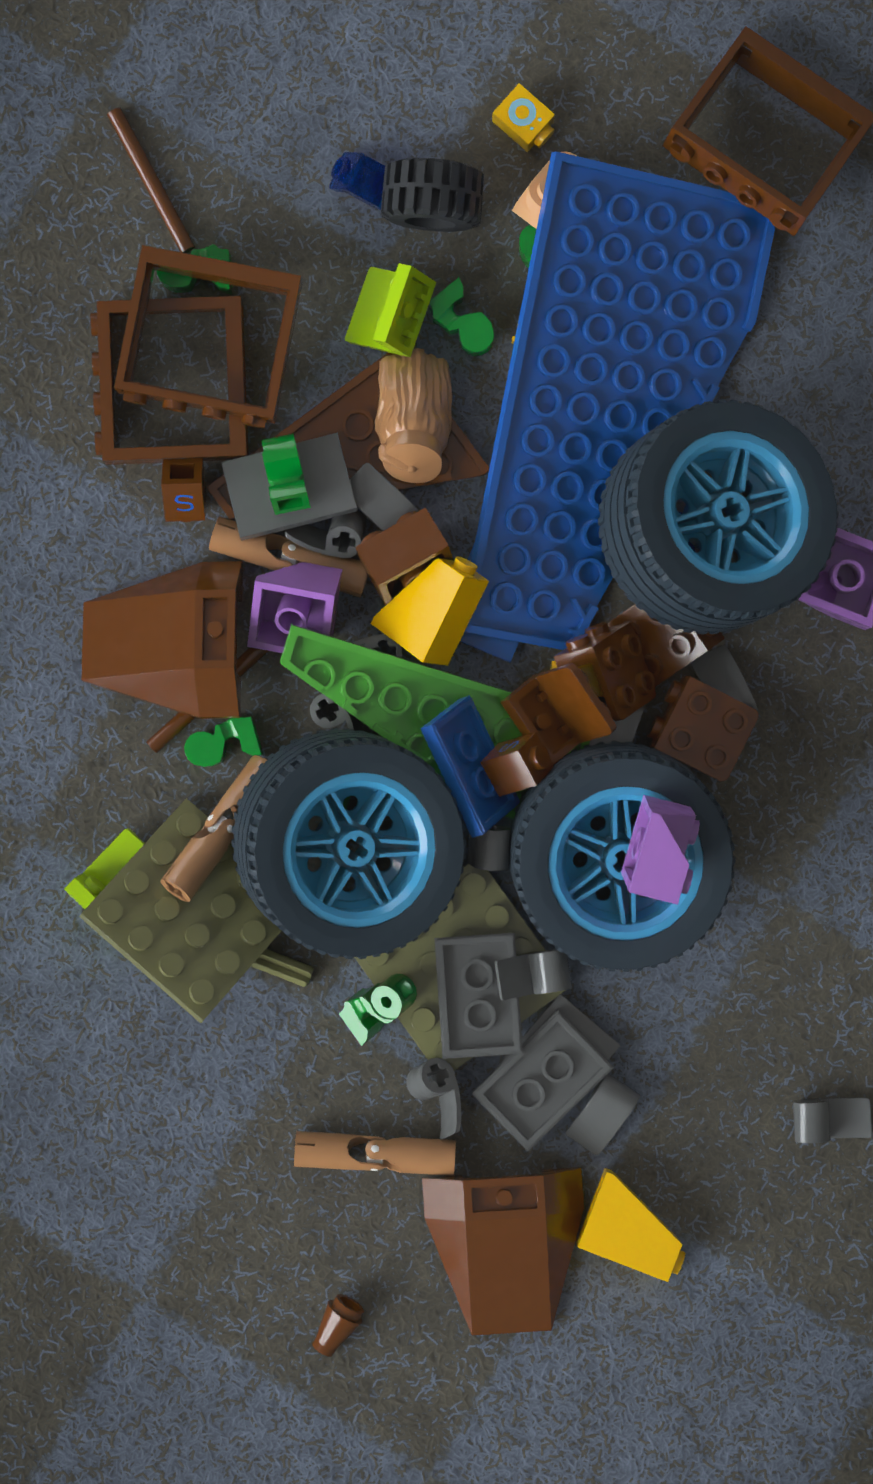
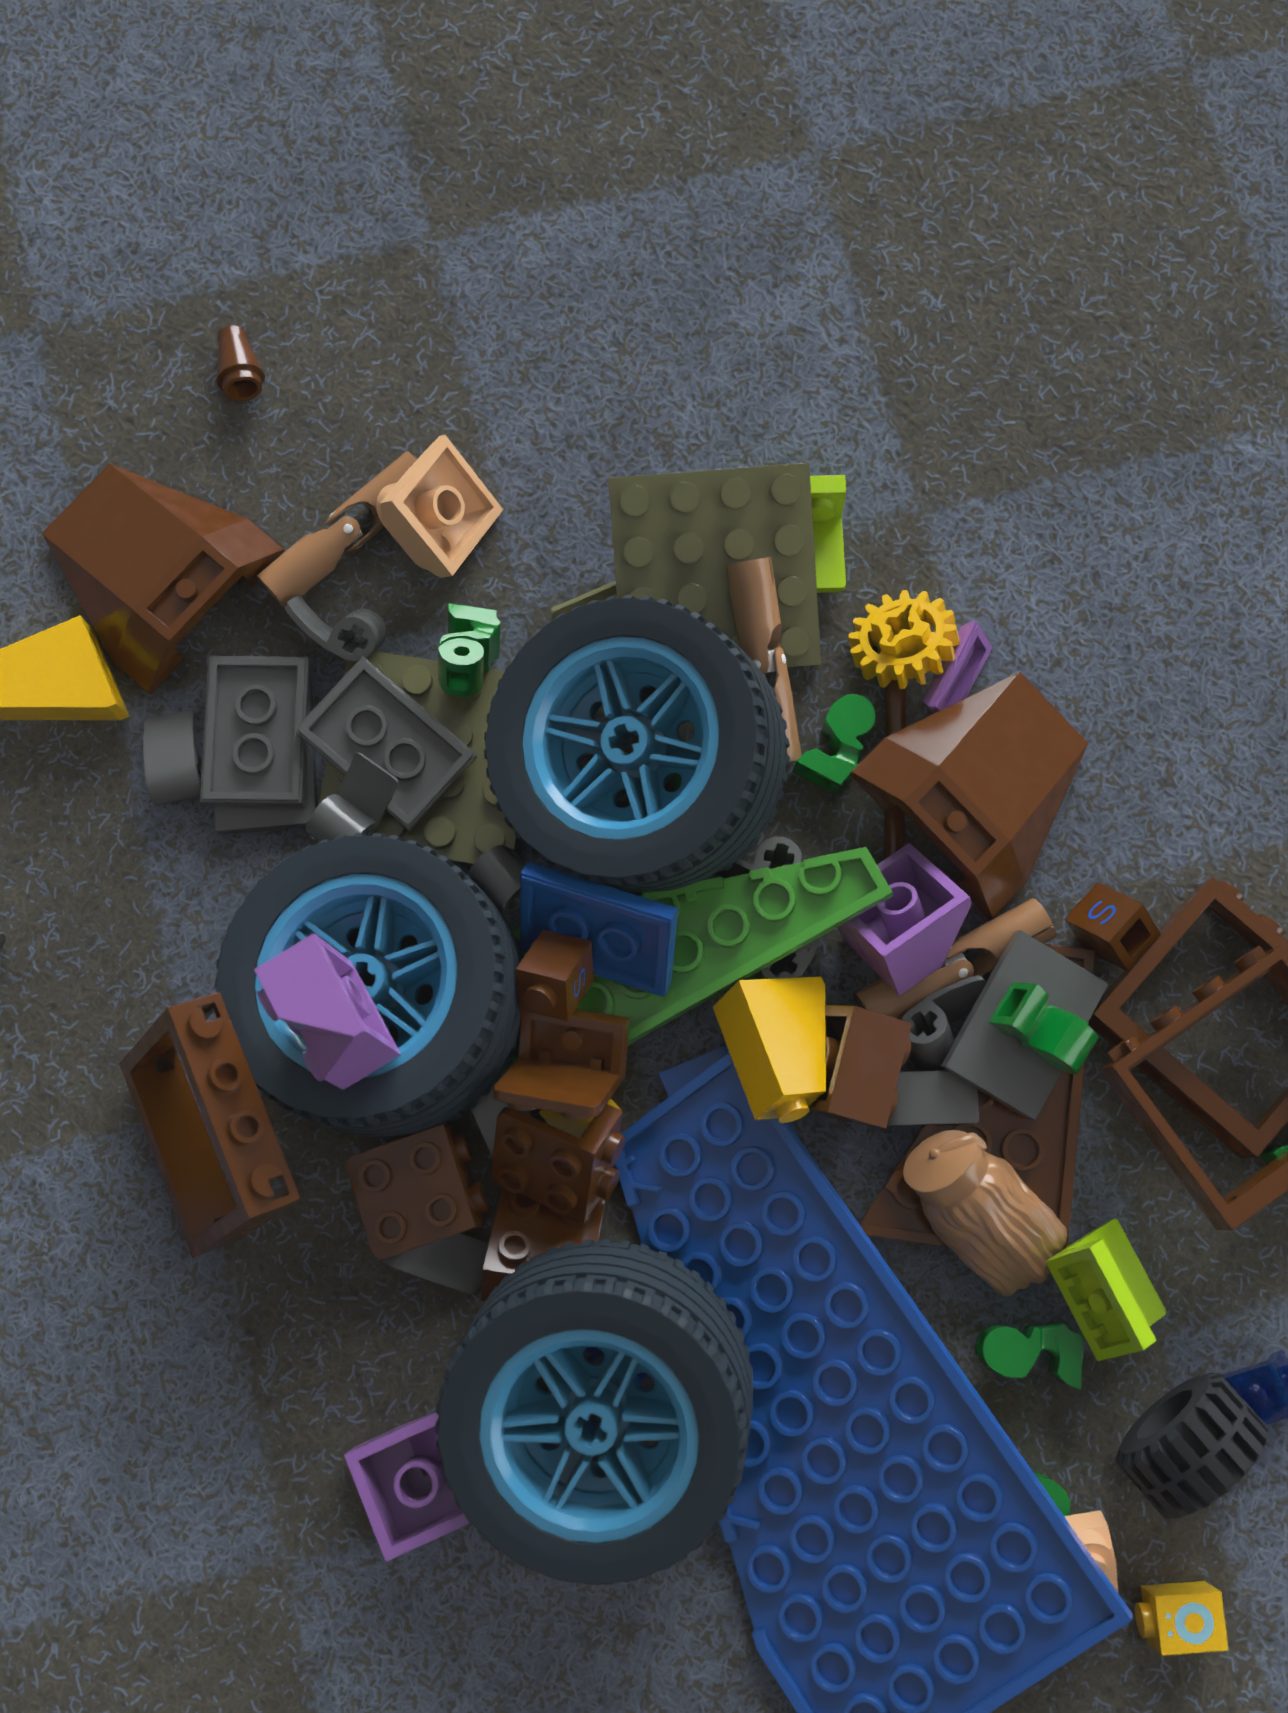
camera: 130 degrees right, 10 degrees down
(113, 716) = (962, 672): none -> medium lavender tile
(126, 763) = (904, 639): none -> yellow gear
(312, 1107) = (438, 509): none -> light nougat slope
(806, 876) = (232, 1115): none -> reddish brown window

